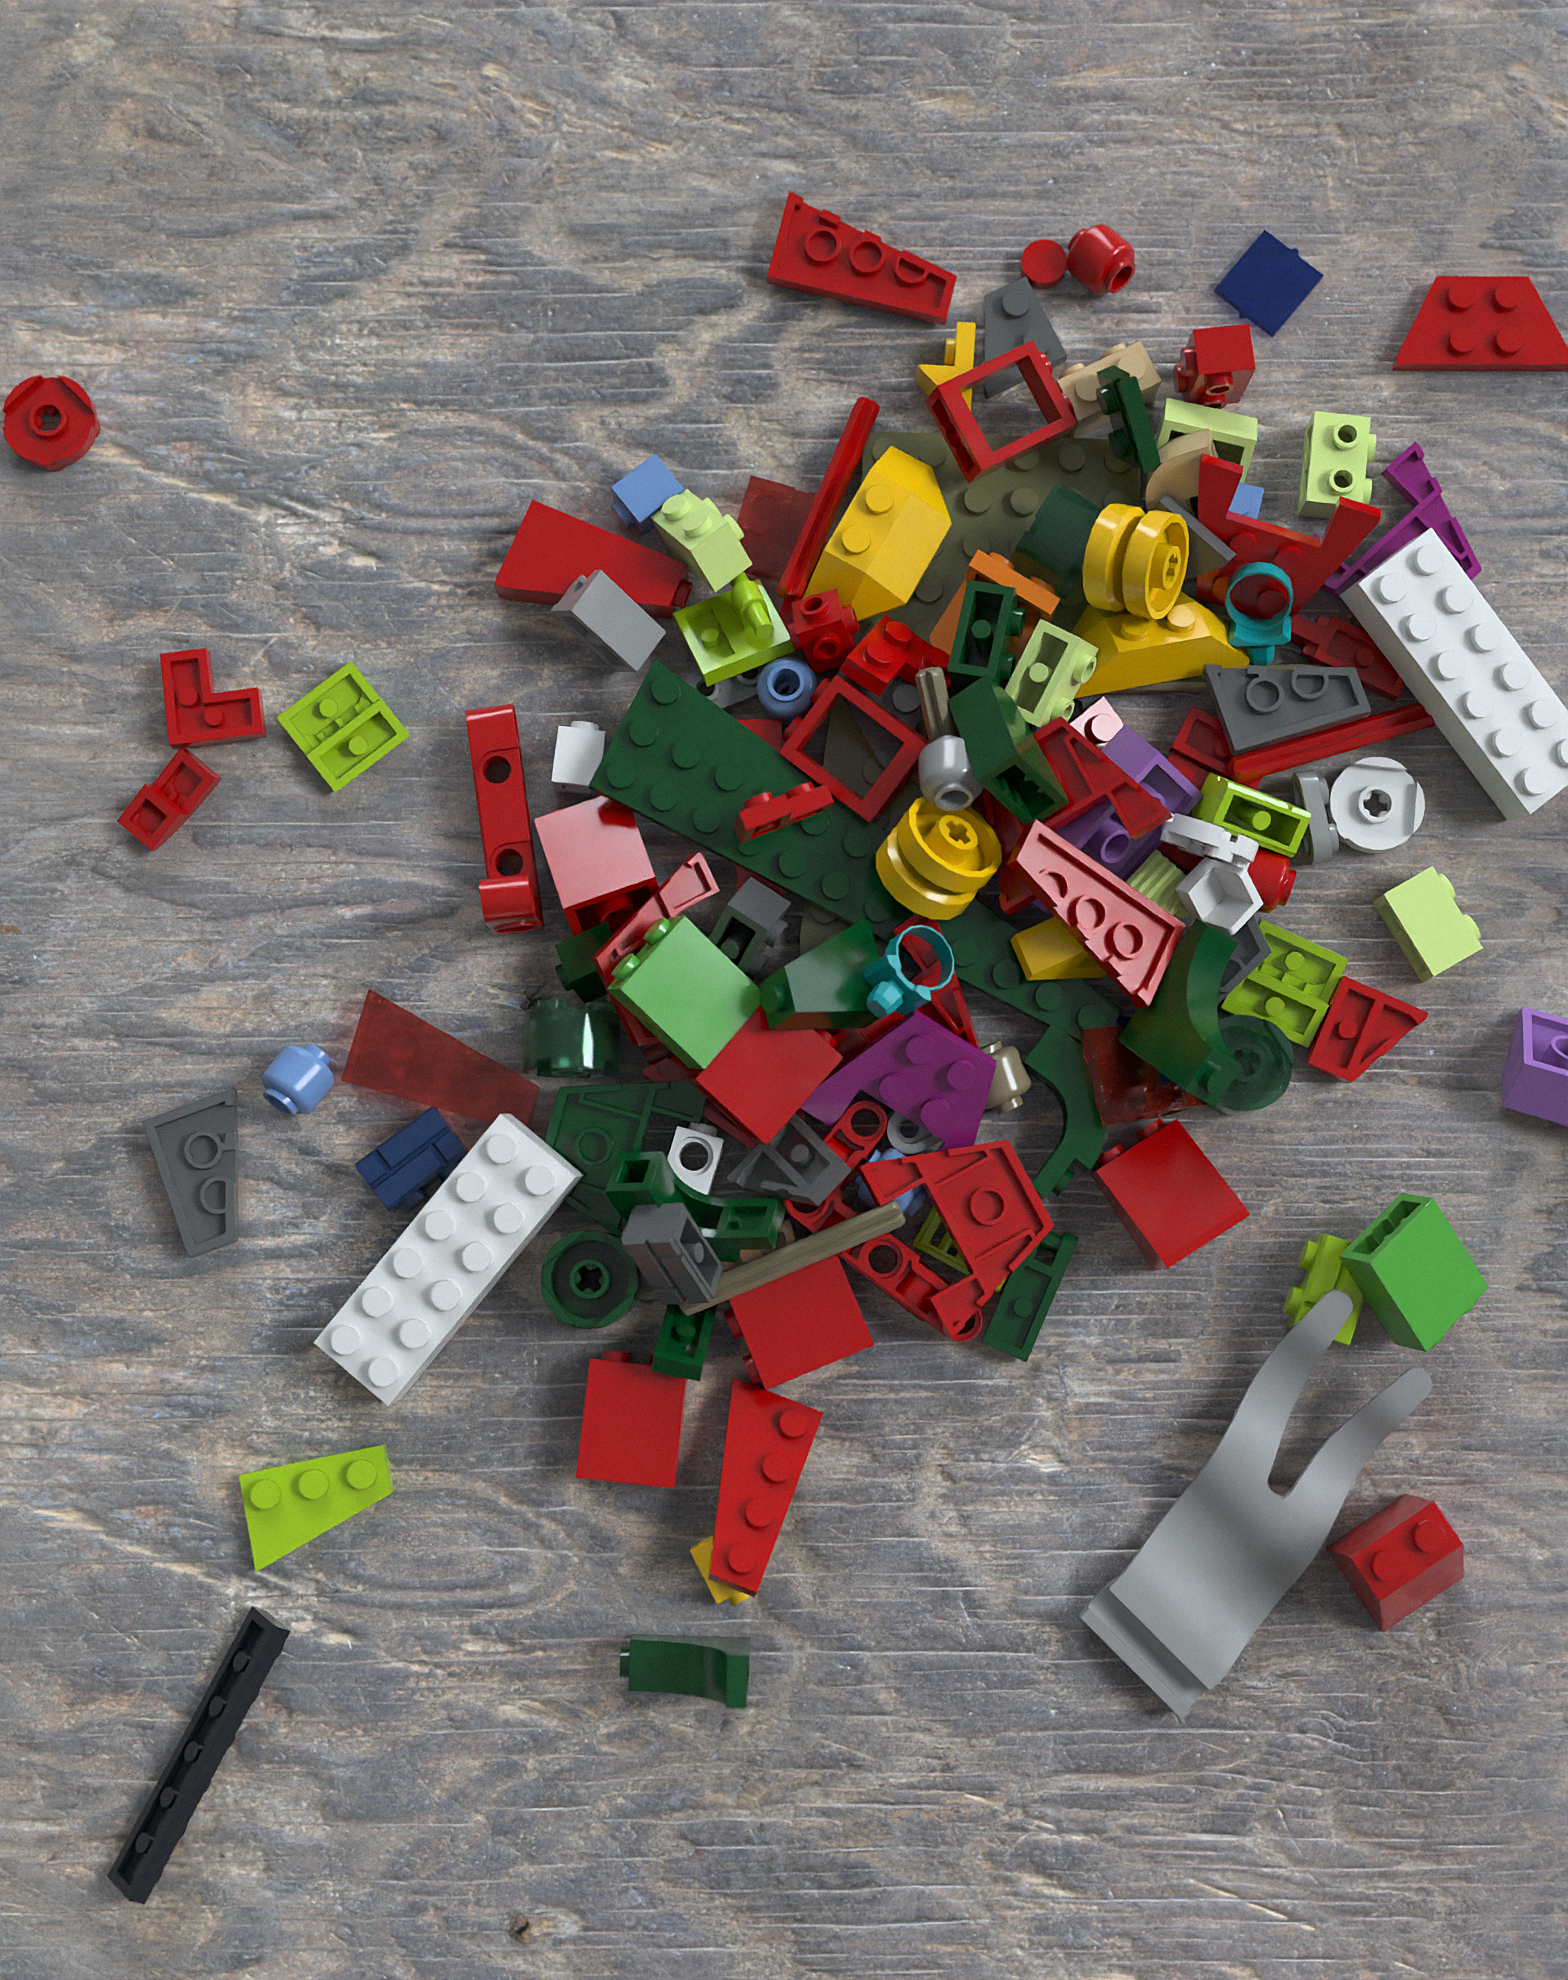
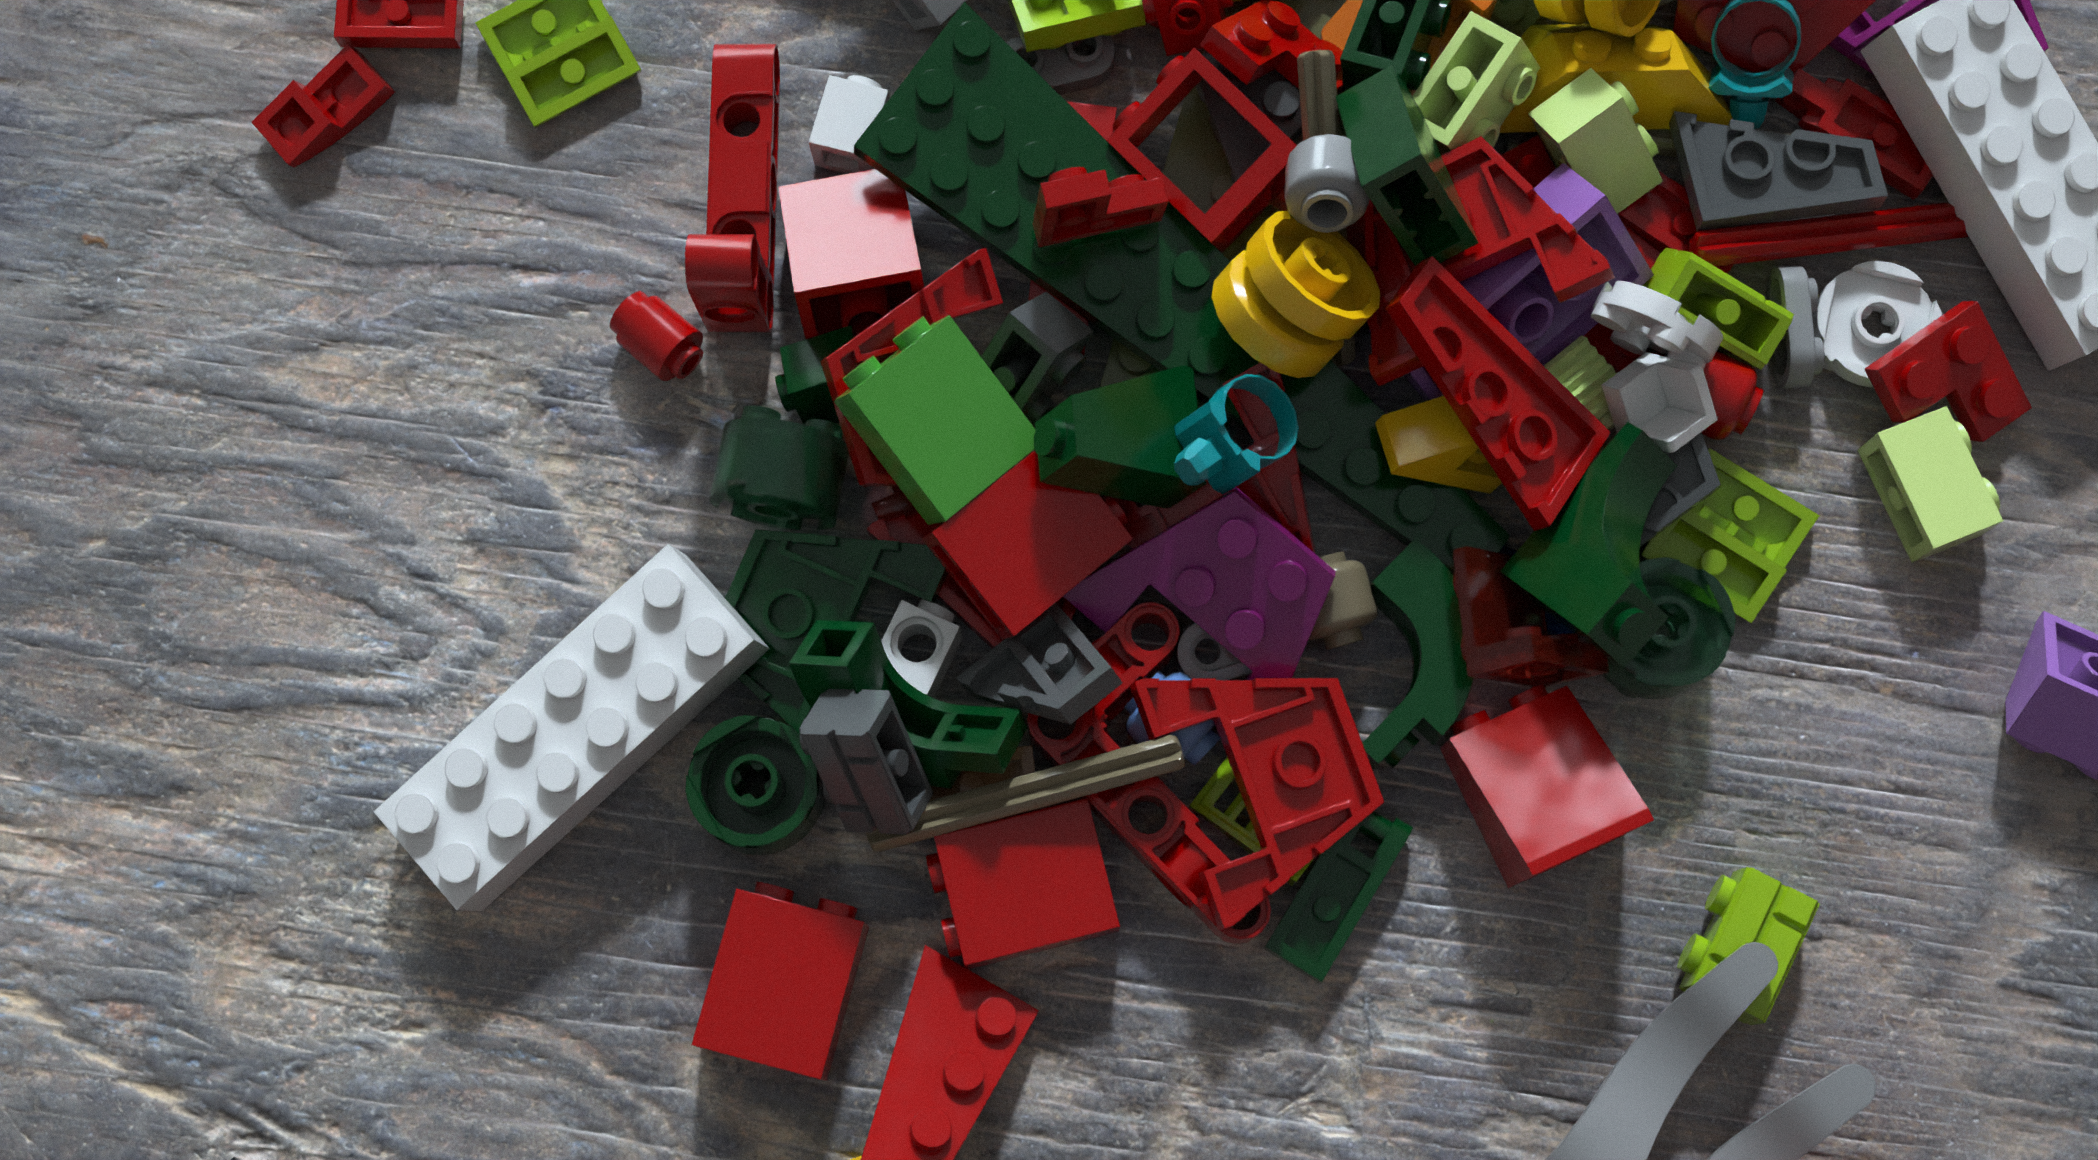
camera: 10 degrees right, 5 degrees down
(199, 1169) = (273, 571): dark grey wing -> none
(297, 1079) = (419, 474): medium blue head -> none
(309, 1497) = (331, 1023): lime wing -> none
(413, 1161) = (545, 597): dark blue brick -> none
(424, 1065) = (585, 479): clear red wing -> none
(459, 946) = (657, 336): none -> red brick
(683, 1343) = (865, 885): dark green plate -> none
(783, 676) = (1126, 68): medium blue head -> none
(1149, 701) = (1595, 135): none -> yellowish green brick
(1359, 1030) = (1823, 608): red wing -> none
(1414, 1272) = (1866, 935): bright green brick -> none
(1437, 827) = (1956, 360): none -> red plate

